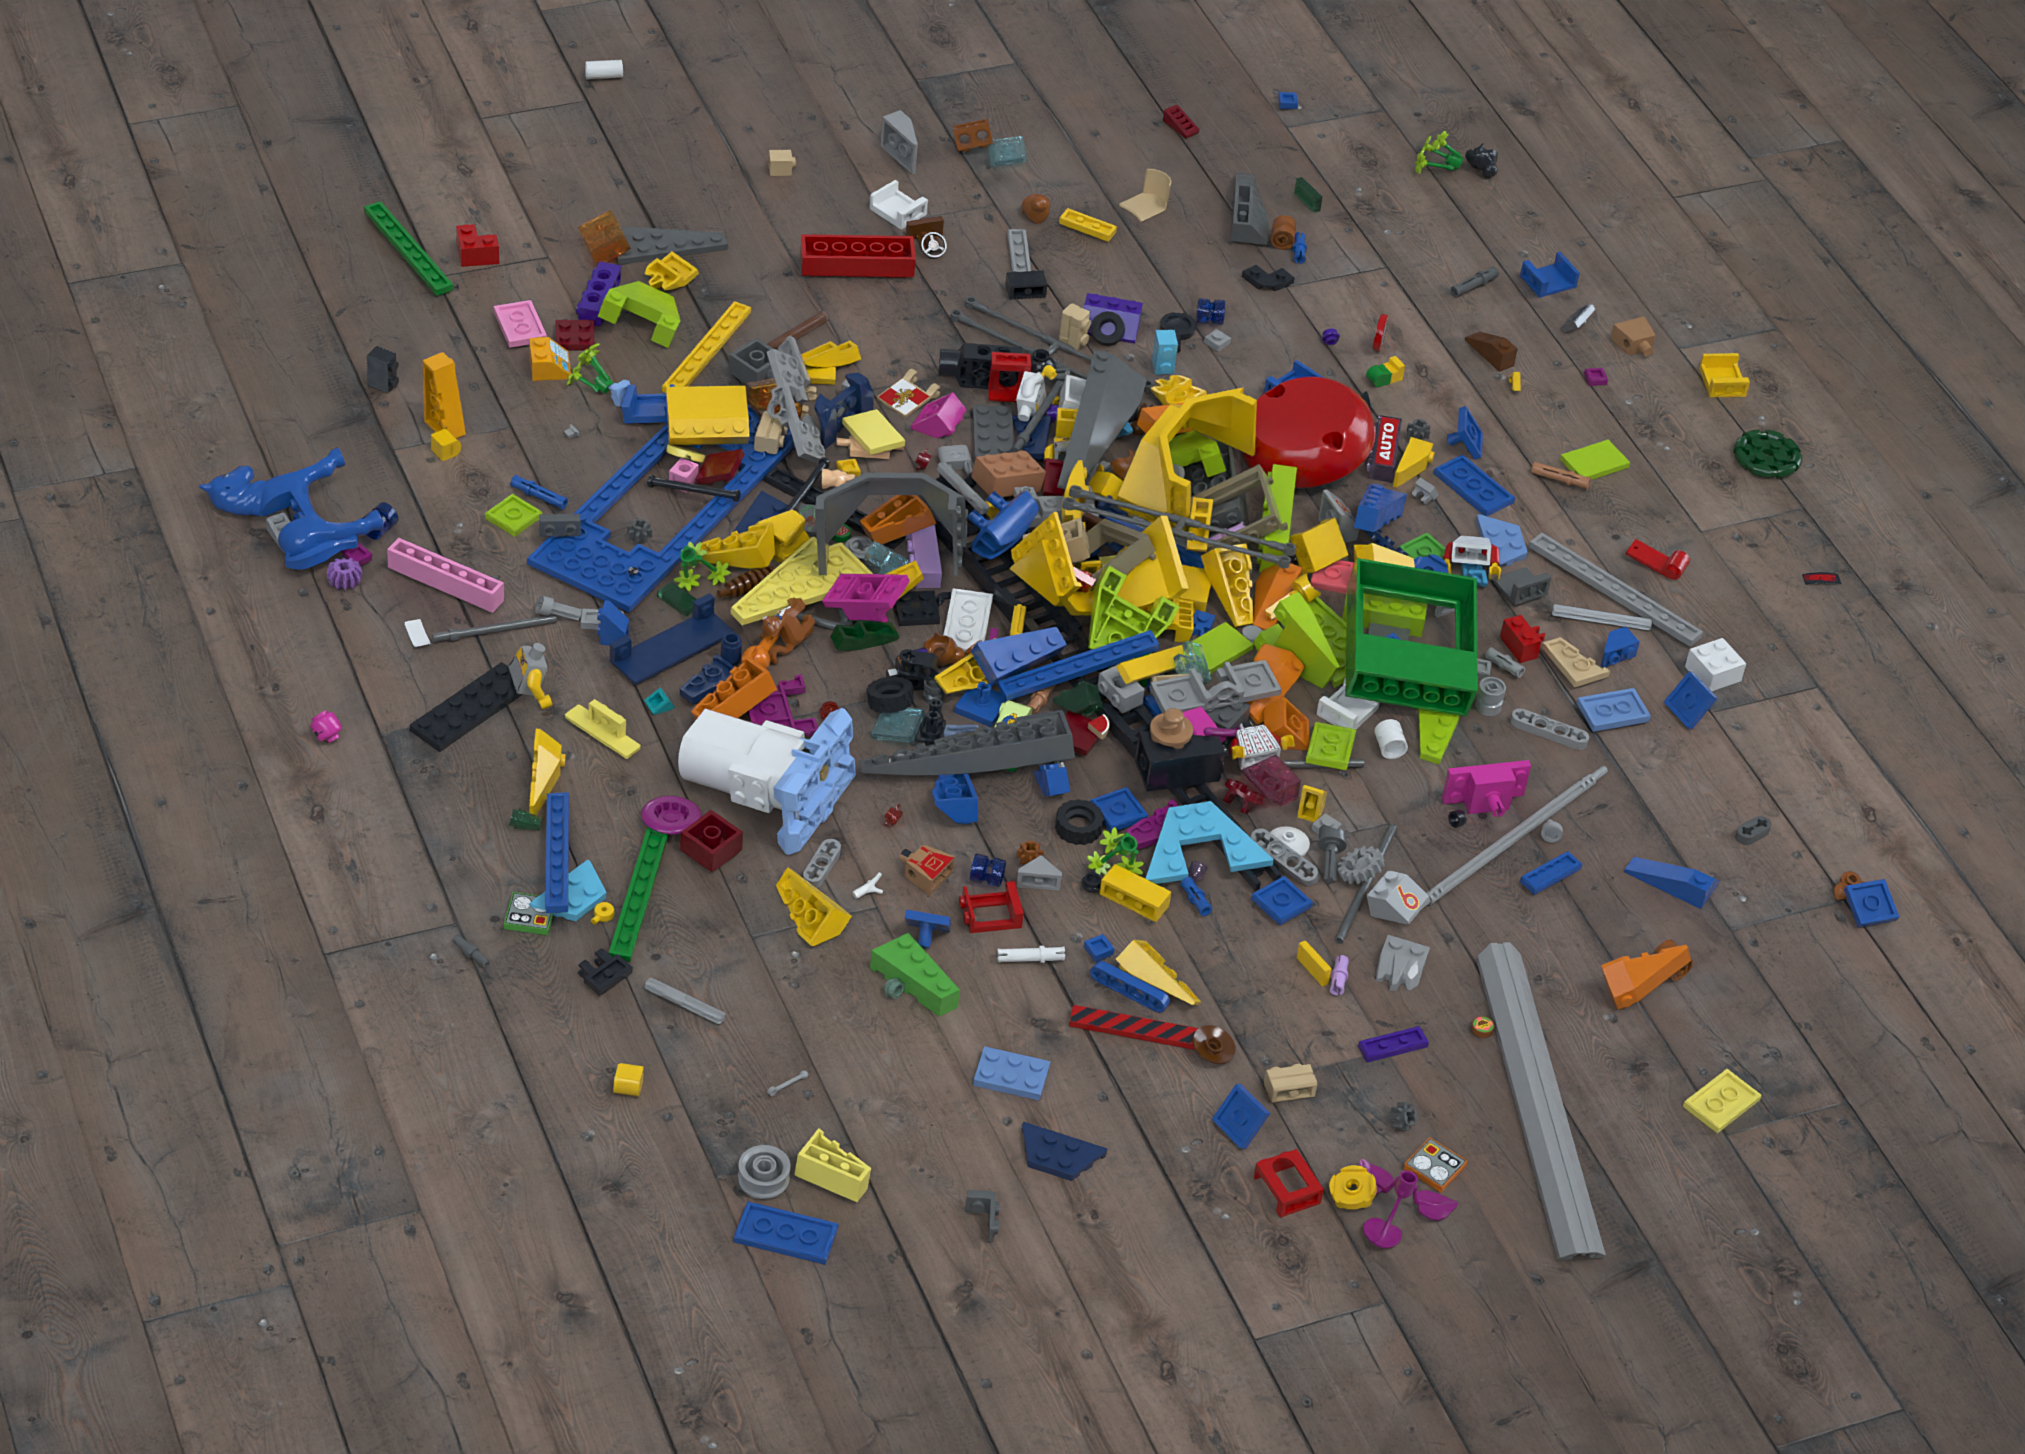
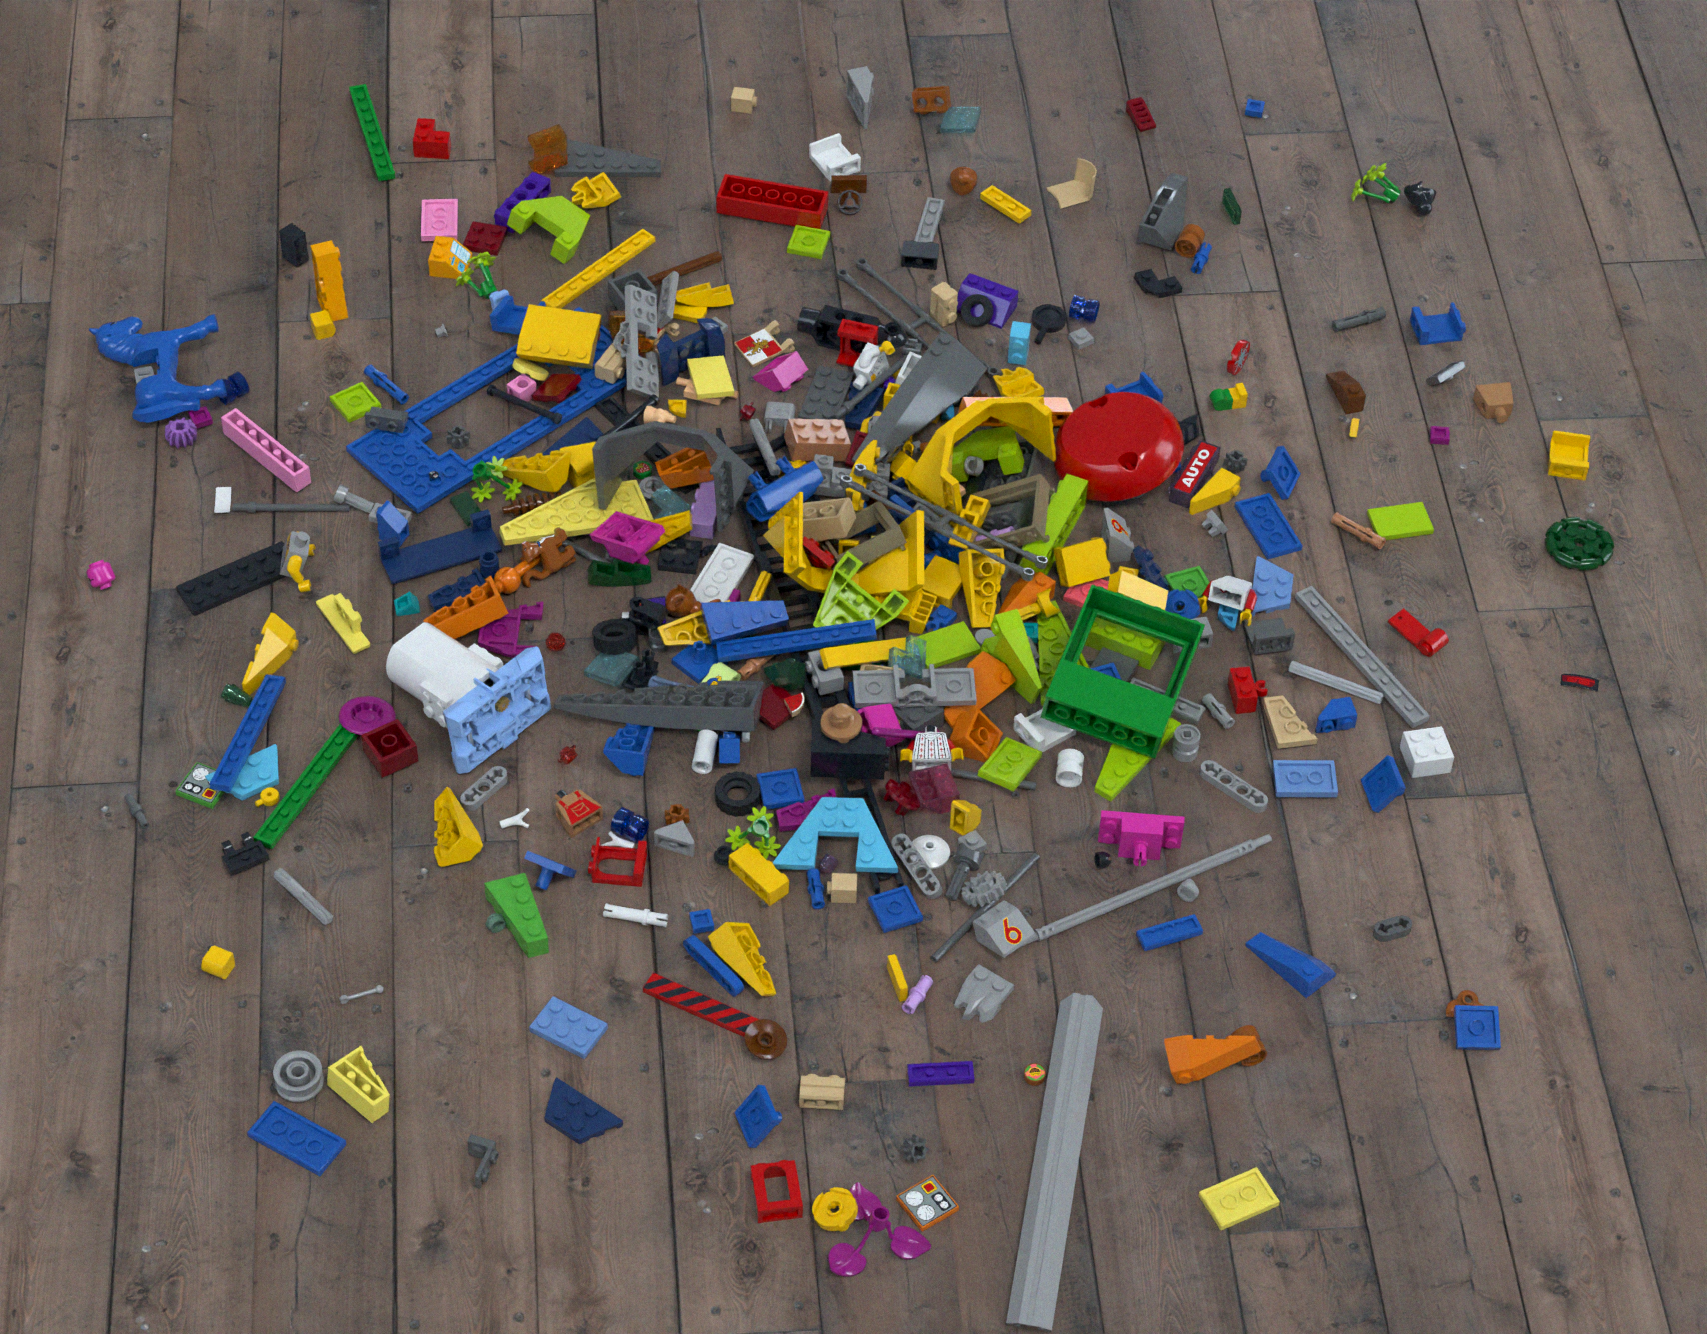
camera: 20 degrees right, 5 degrees up
(907, 289) = (808, 241): none -> lime tile
(981, 889) = (618, 842): none -> white bar
(1029, 788) = (704, 751): none -> white pin
(1224, 890) = (842, 888): none -> tan brick
(1330, 336) = (1191, 352): dark purple plate -> none
(1379, 507) = (1154, 534): blue wedge -> none

